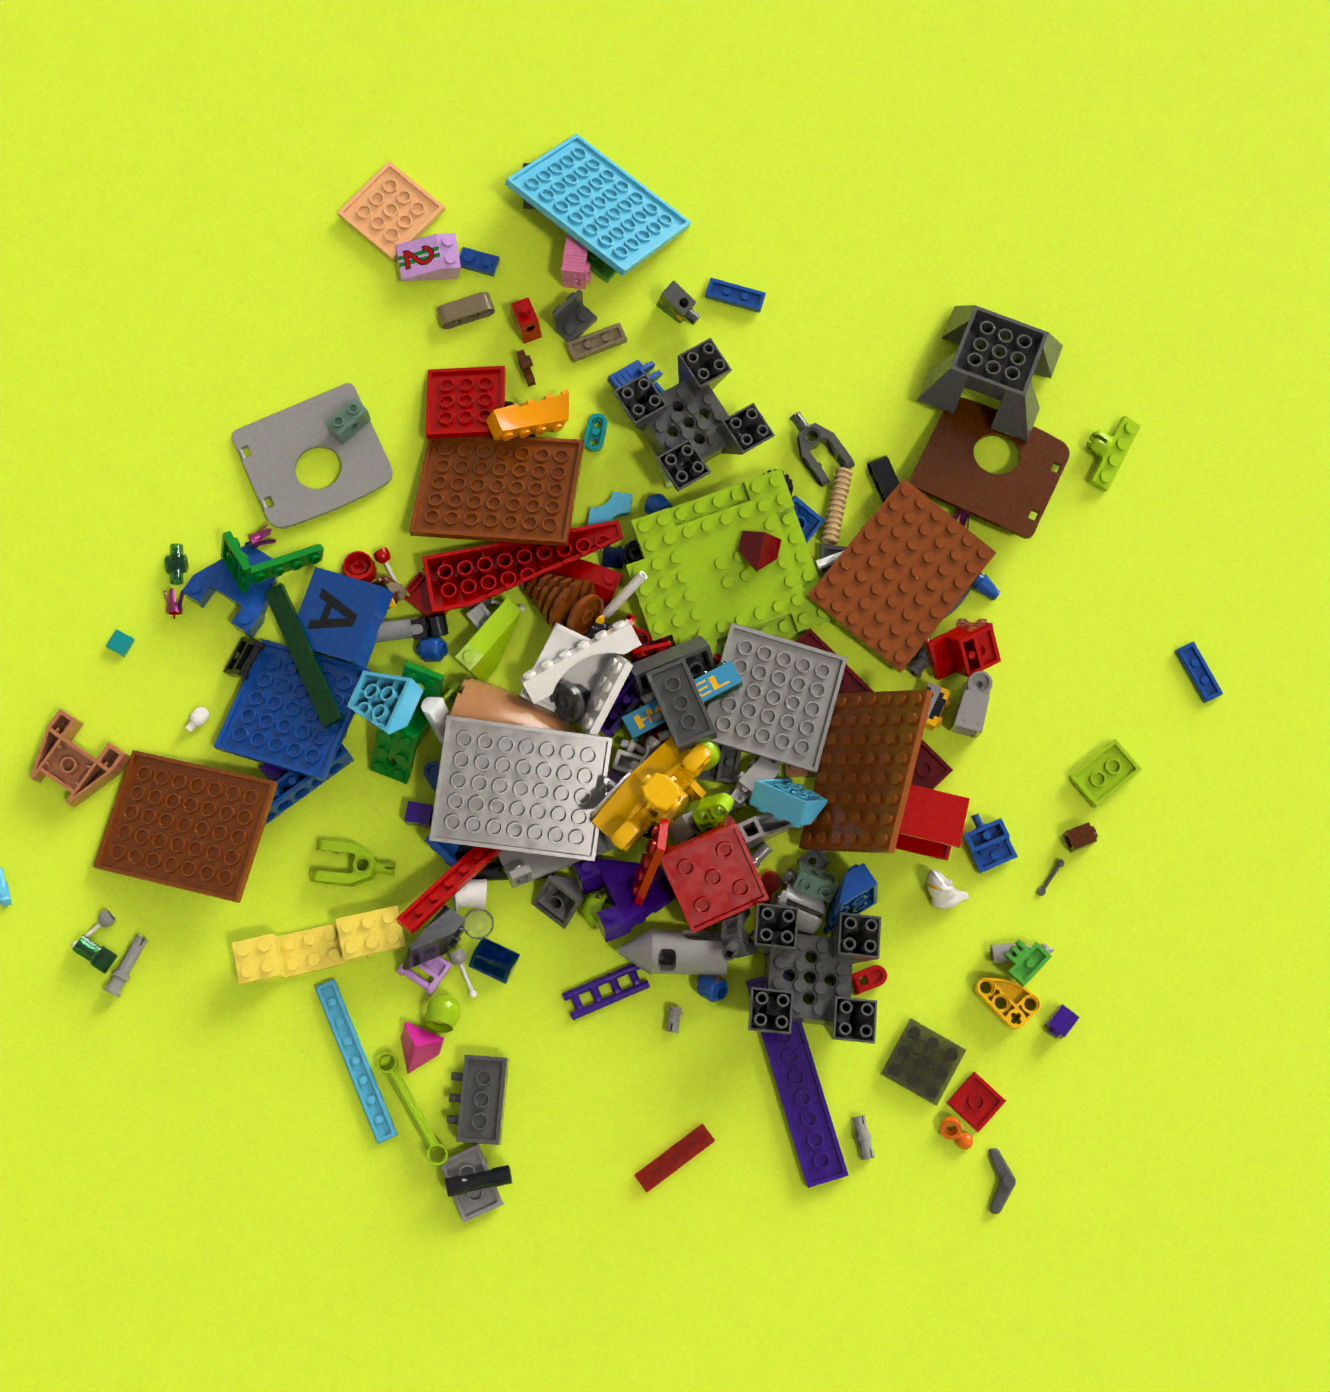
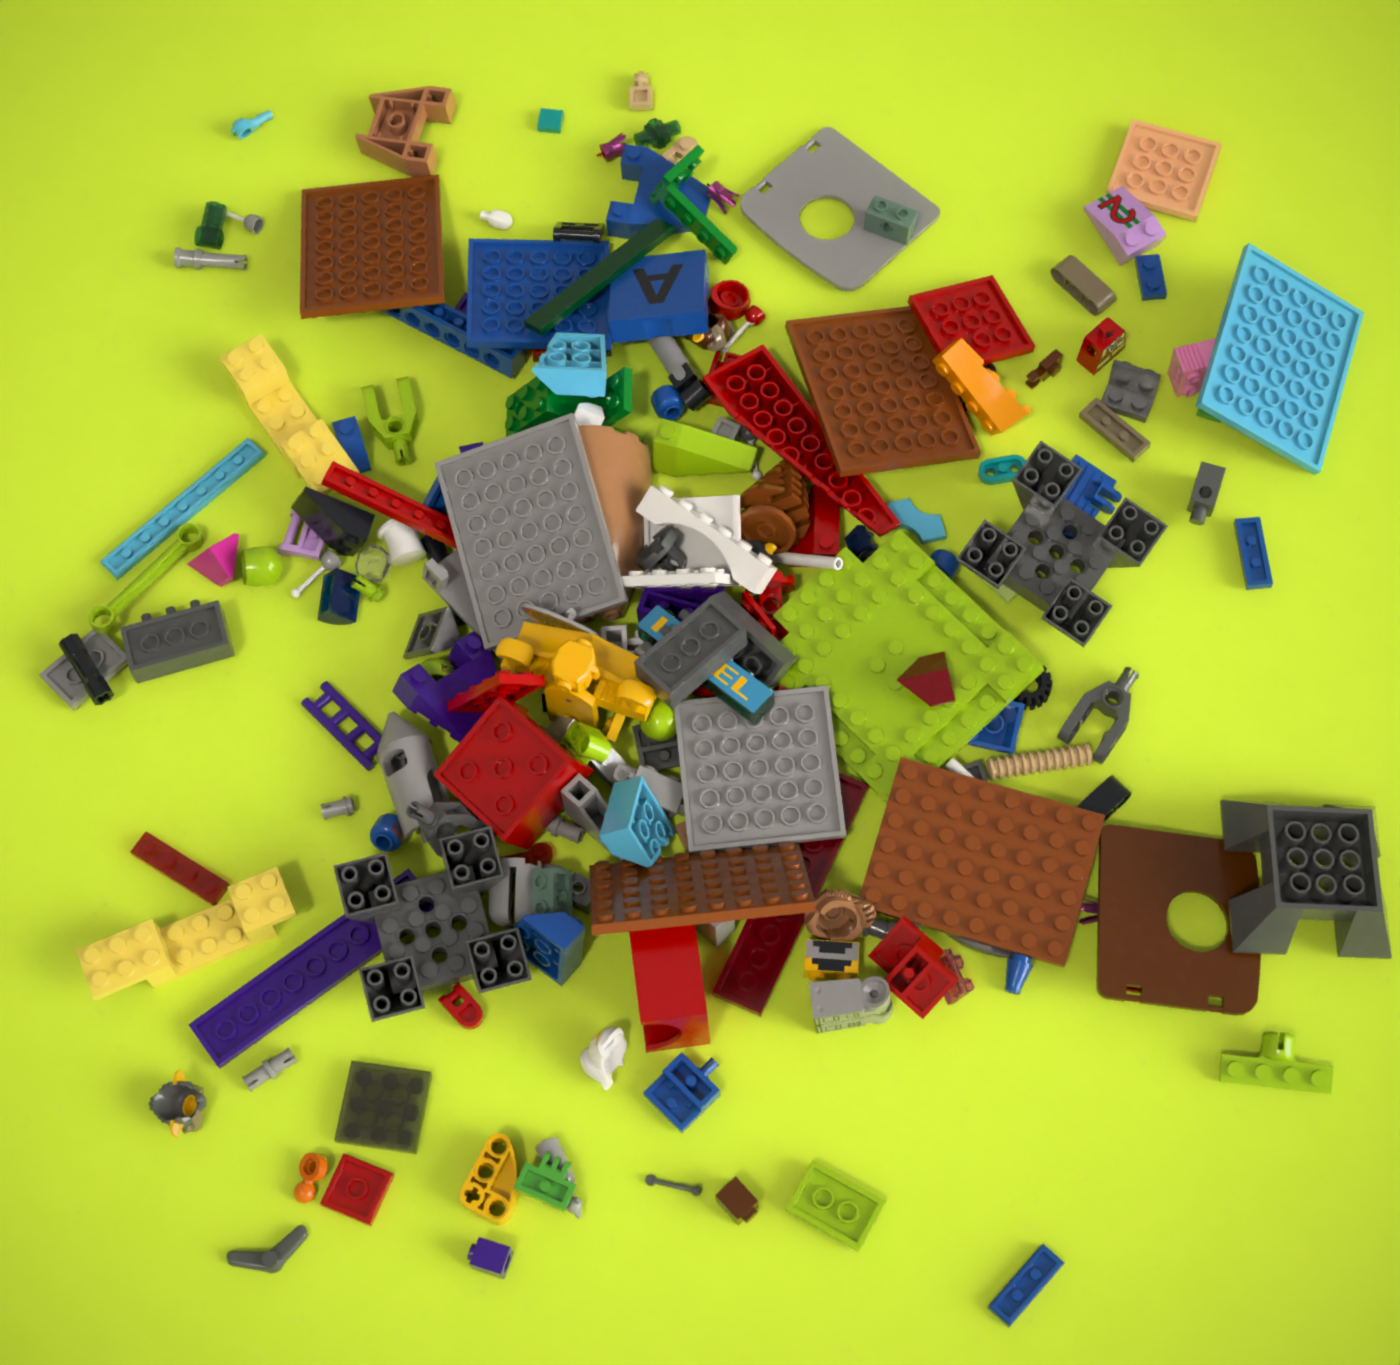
camera: 75 degrees right, 10 degrees down
(133, 562) = (641, 94): none -> tan plate
(200, 548) = (680, 149): none -> tan plate
(359, 903) = (350, 438): none -> blue slope
(499, 932) = (369, 589): none -> lime pin
(740, 1165) = (190, 942): none -> light yellow bracket
(870, 1212) = (179, 1105): none -> dark grey hair
(898, 678) = (839, 916): none -> medium nougat helmet

